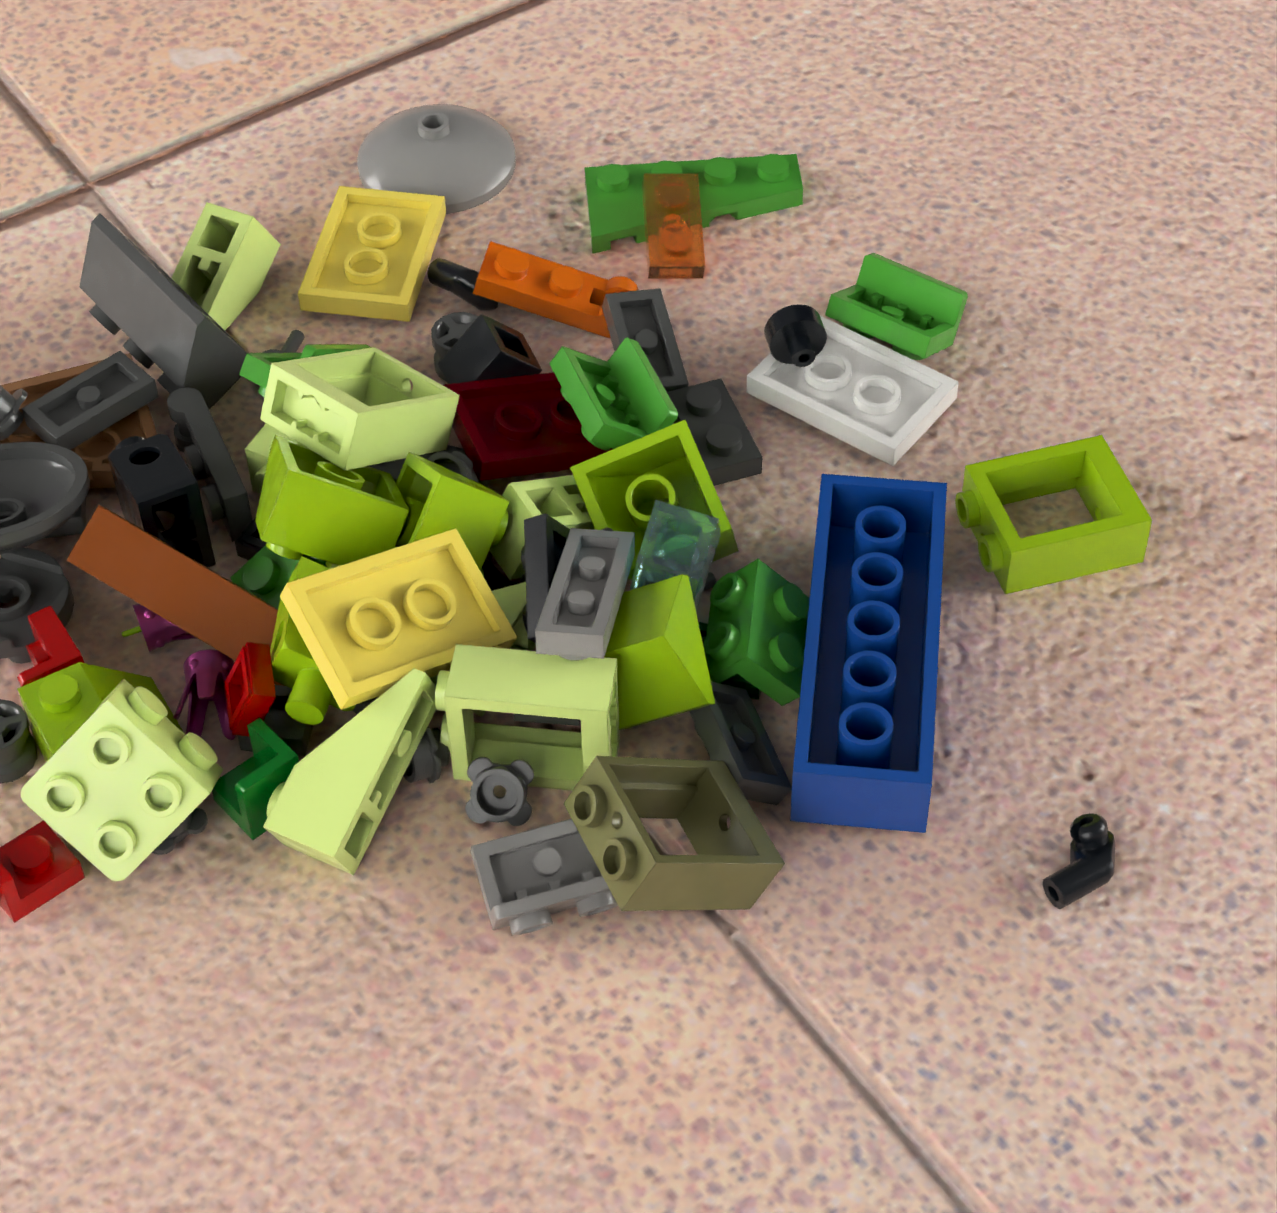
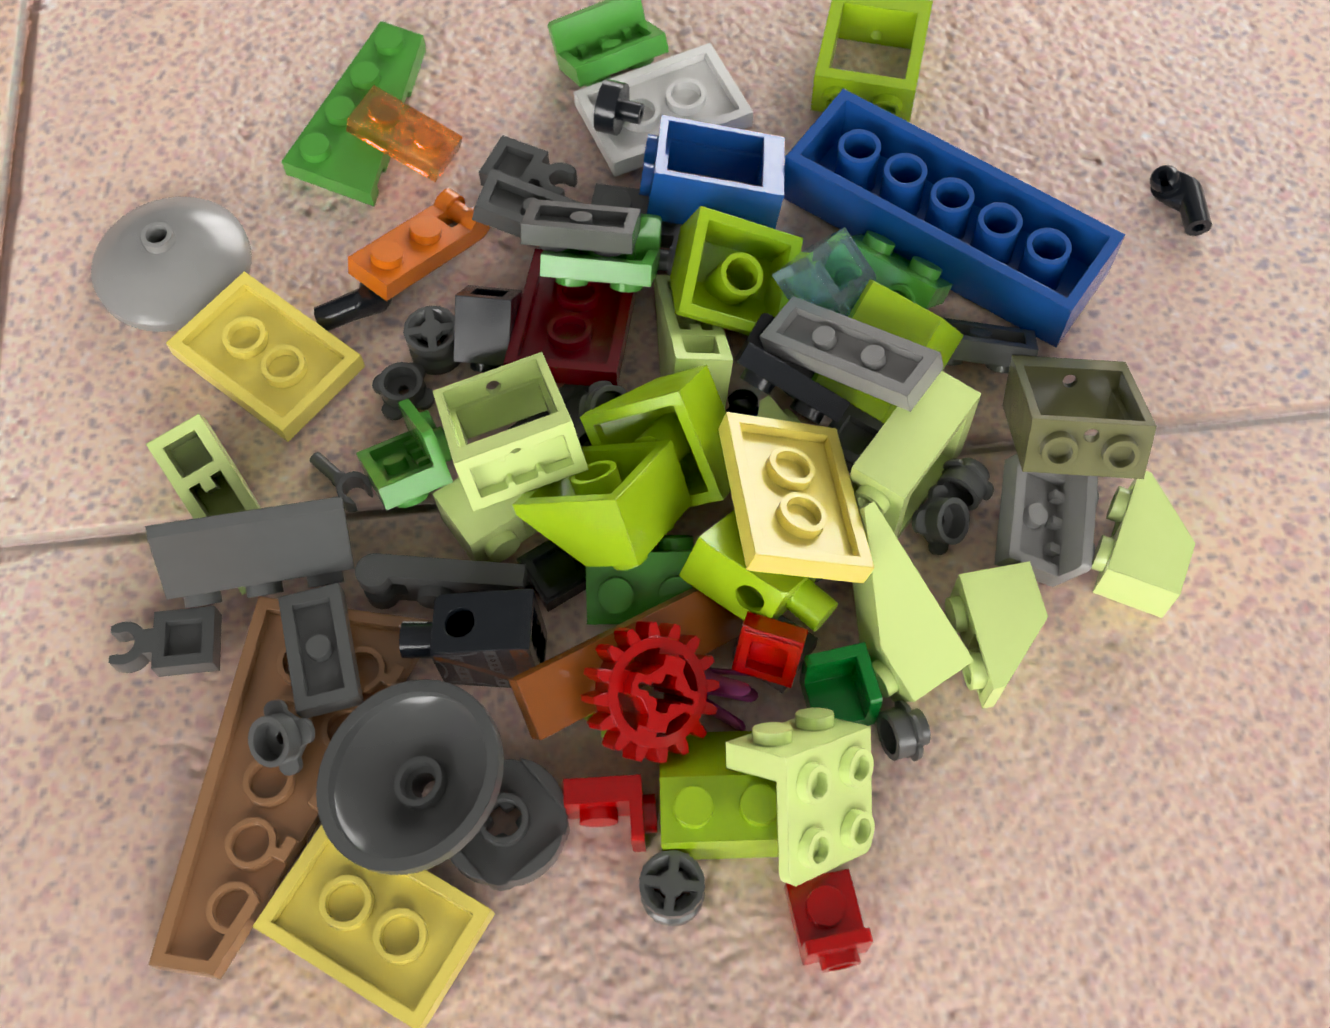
camera: 60 degrees left, 15 degrees up
(65, 331) = (176, 645): none -> dark grey plate
(127, 621) = (632, 716): none -> red gear
(243, 851) = (903, 731): none -> dark grey plate
(397, 882) = (998, 621): none -> yellowish green slope
(404, 346) = (400, 377): none -> dark grey plate
(554, 791) = (967, 481): none -> dark grey plate
(570, 972) = (1146, 552): none -> yellowish green slope
(612, 358) = (580, 226): none -> dark grey plate
(697, 323) = (528, 165): none -> dark grey plate
(771, 492) = (714, 153): none -> blue window

